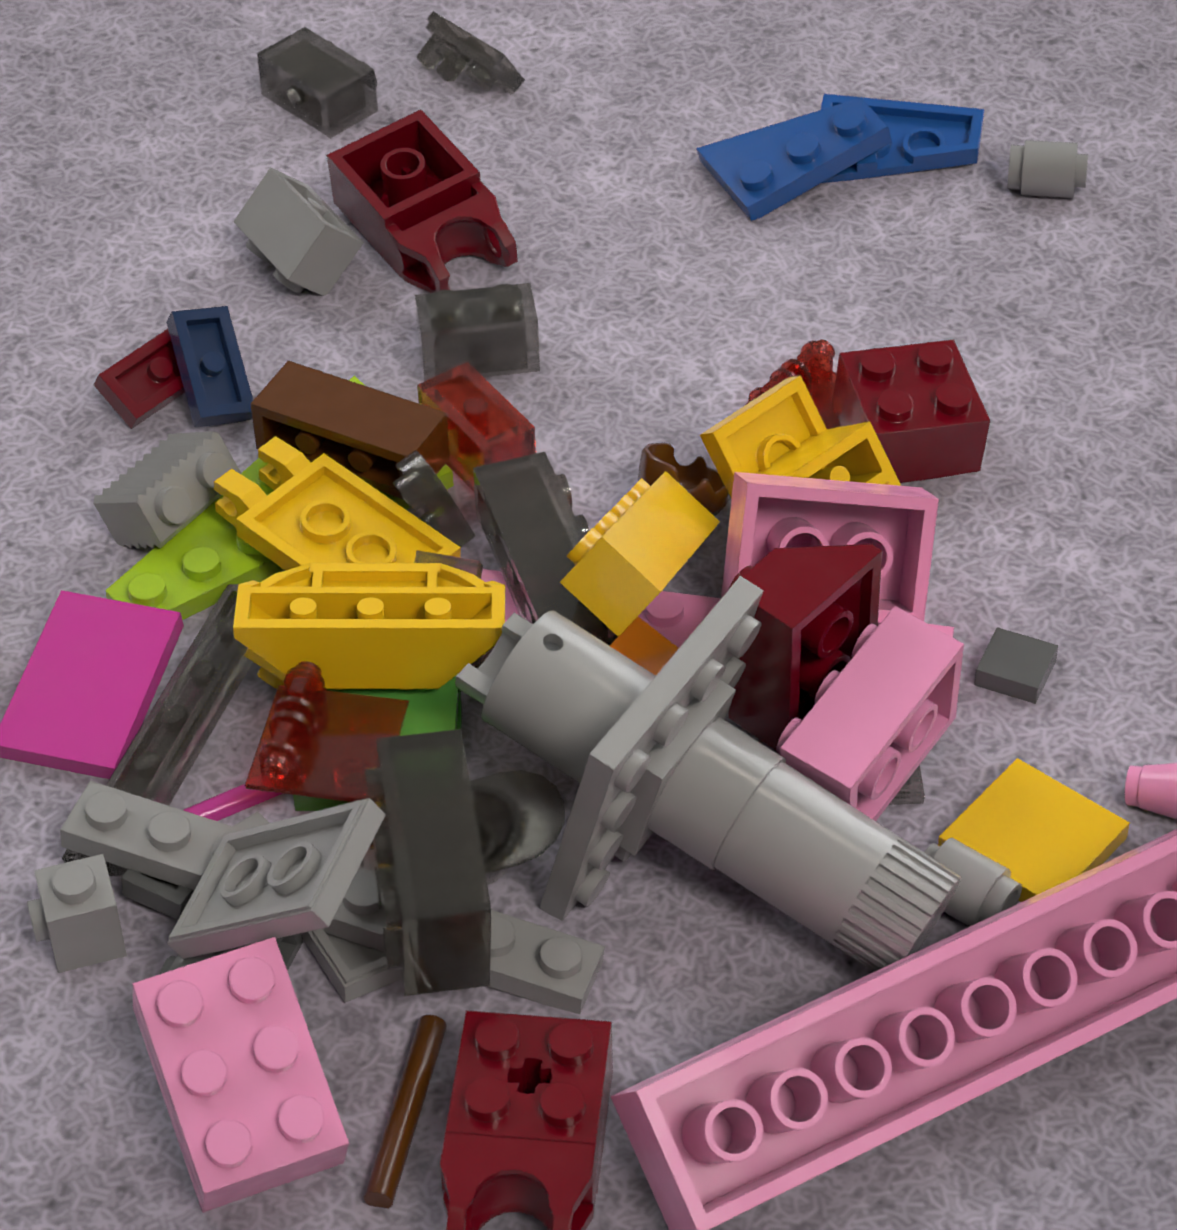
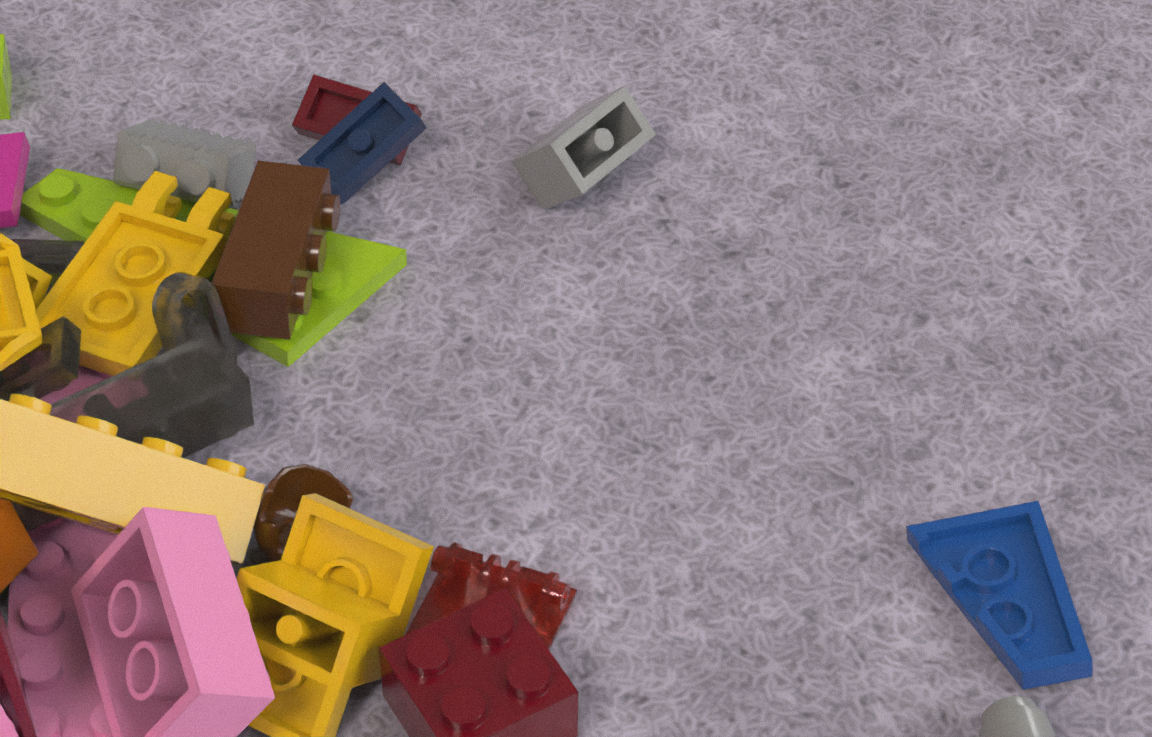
camera: 70 degrees right, 0 degrees up
(317, 82) = (849, 108): clear smoke brick -> none
(418, 201) = (669, 221): dark red brick -> none
(460, 48) = (959, 204): clear smoke plate -> none
(479, 420) = (319, 345): clear red brick -> none
(481, 326) = (489, 314): clear smoke brick -> none
(794, 155) = (916, 502): blue wing -> none

